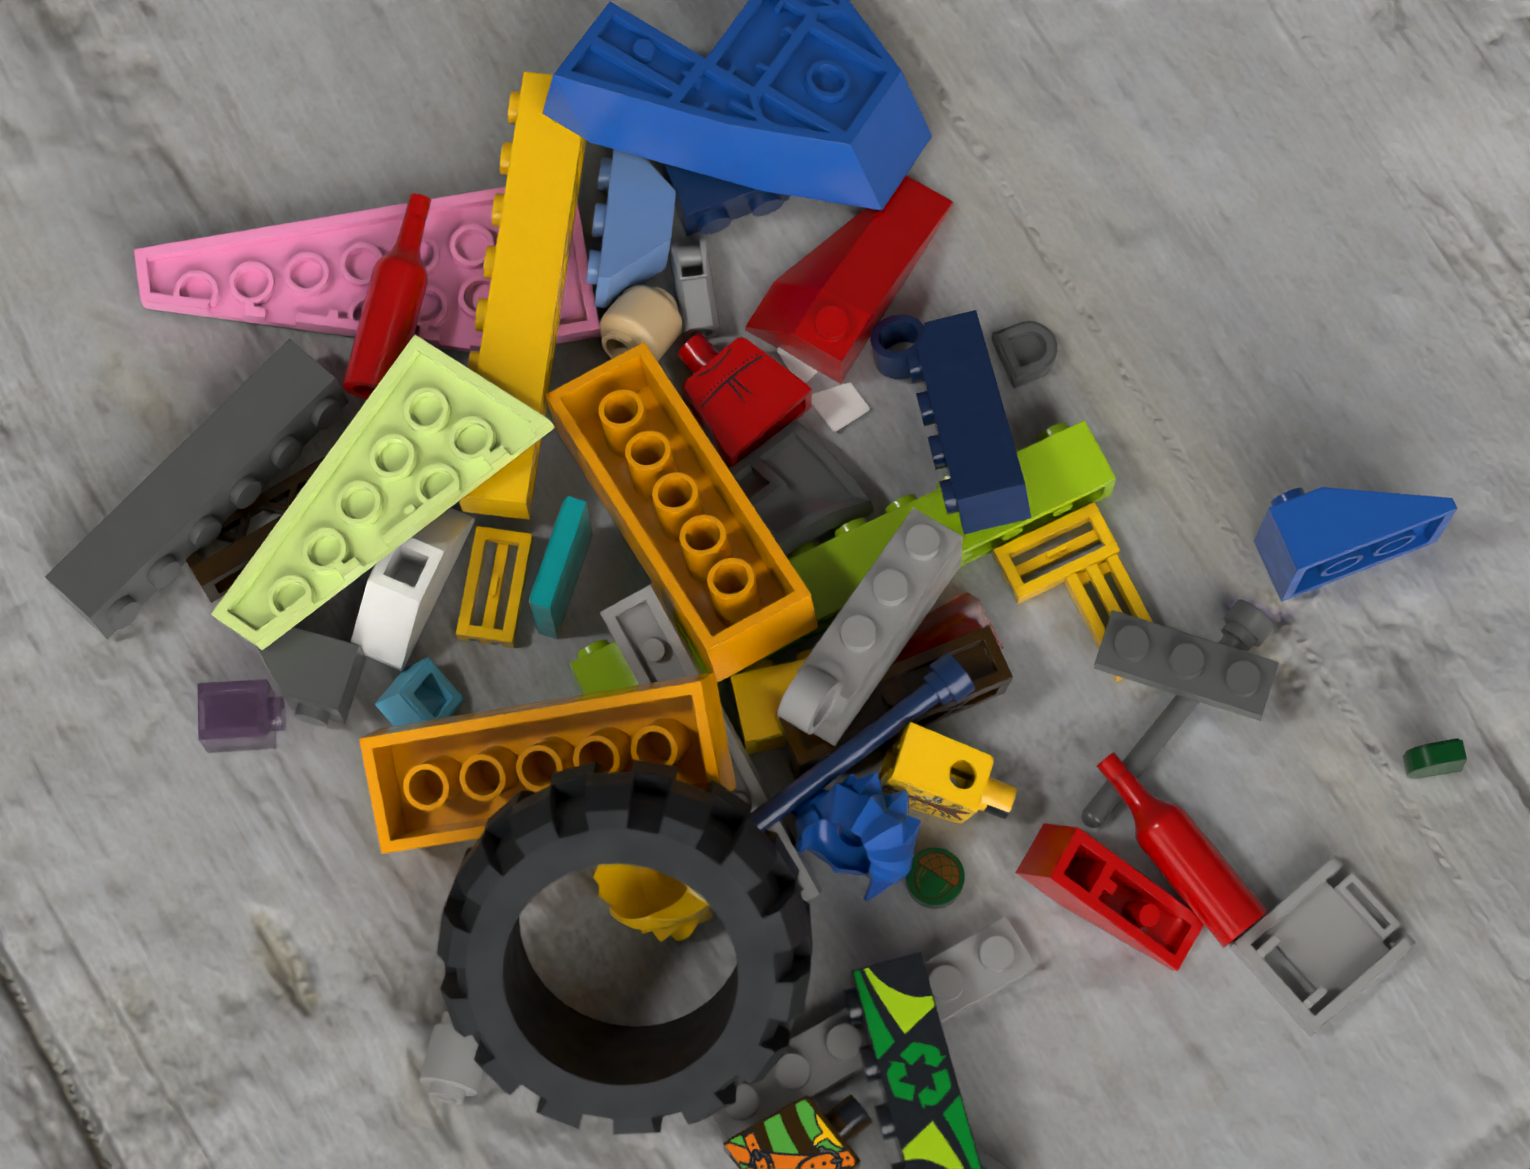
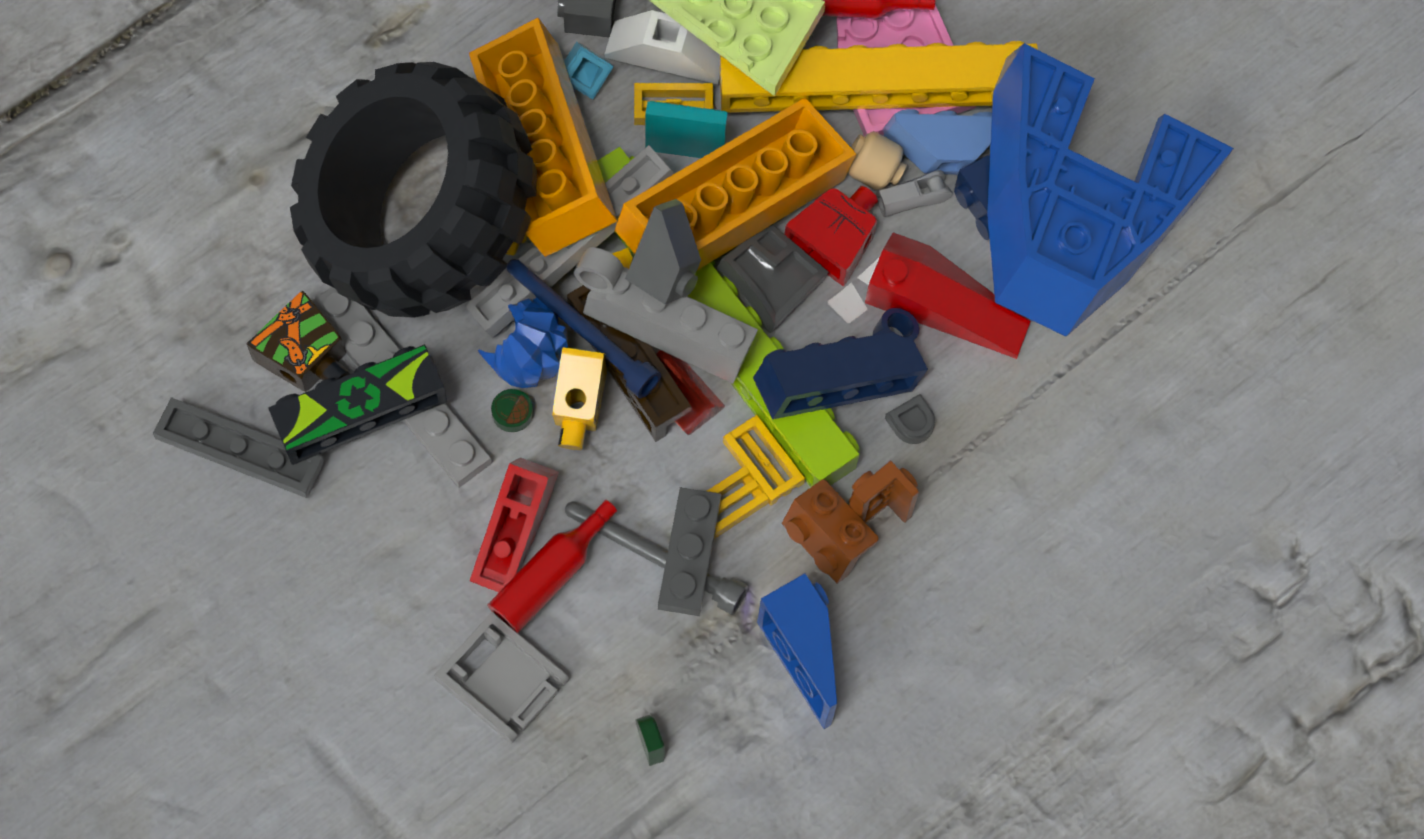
camera: 75 degrees right, 5 degrees down
(815, 600) = (666, 255): none -> dark grey slope
(1143, 406) = (885, 488): none -> dark orange bracket
(1180, 480) = (828, 530): none -> dark orange bracket

